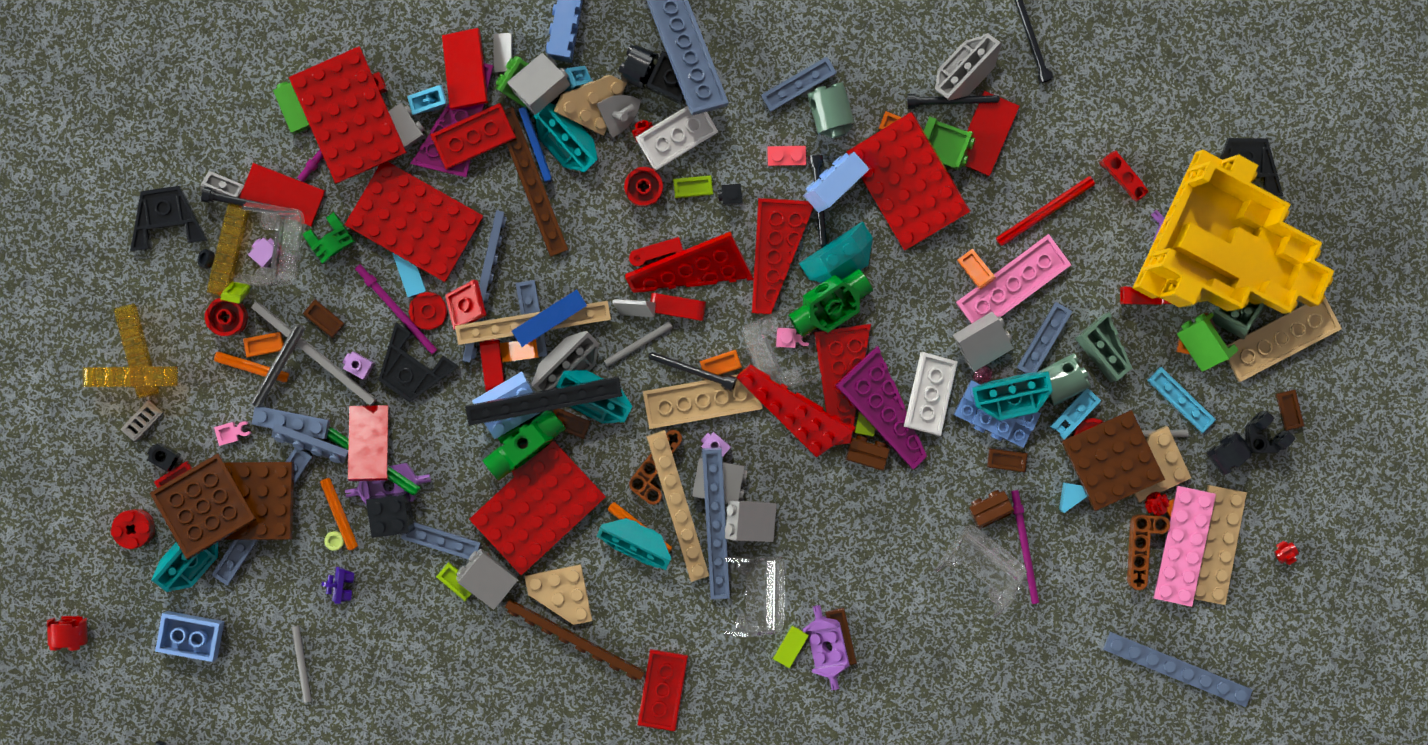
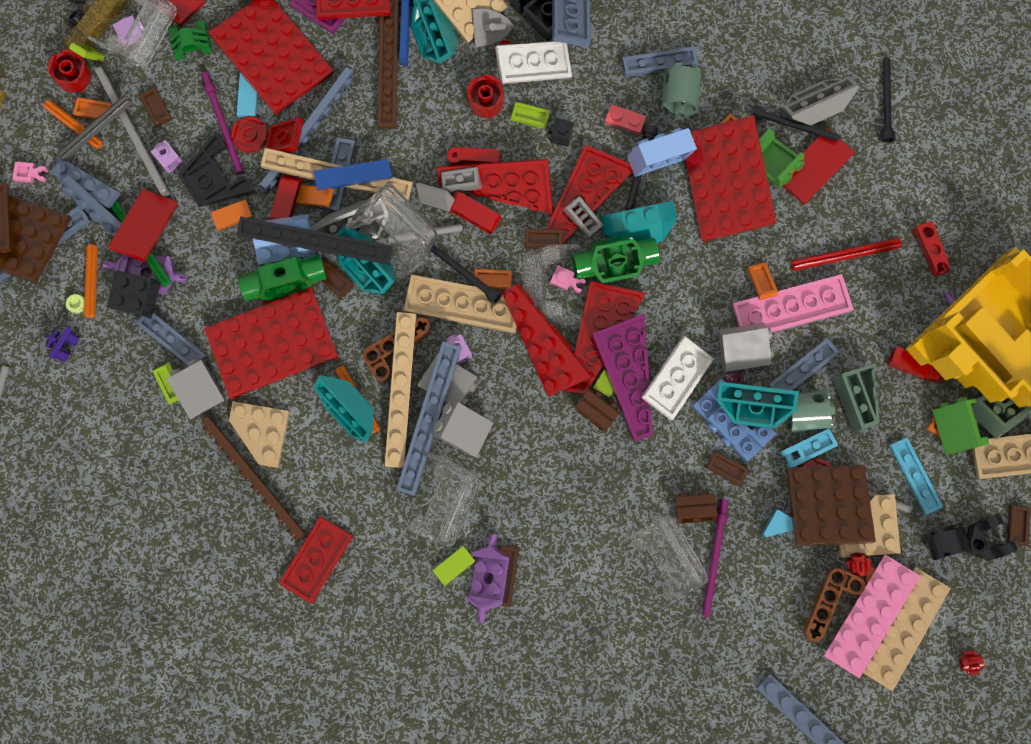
camera: 25 degrees right, 10 degrees down
(445, 397) = (231, 214): none -> orange tile
(618, 347) = (402, 223): none -> clear windscreen
(653, 281) = (461, 180): none -> light grey slope
(754, 309) = (542, 237): none -> reddish brown tile
(767, 271) = (578, 221): none -> light grey slope

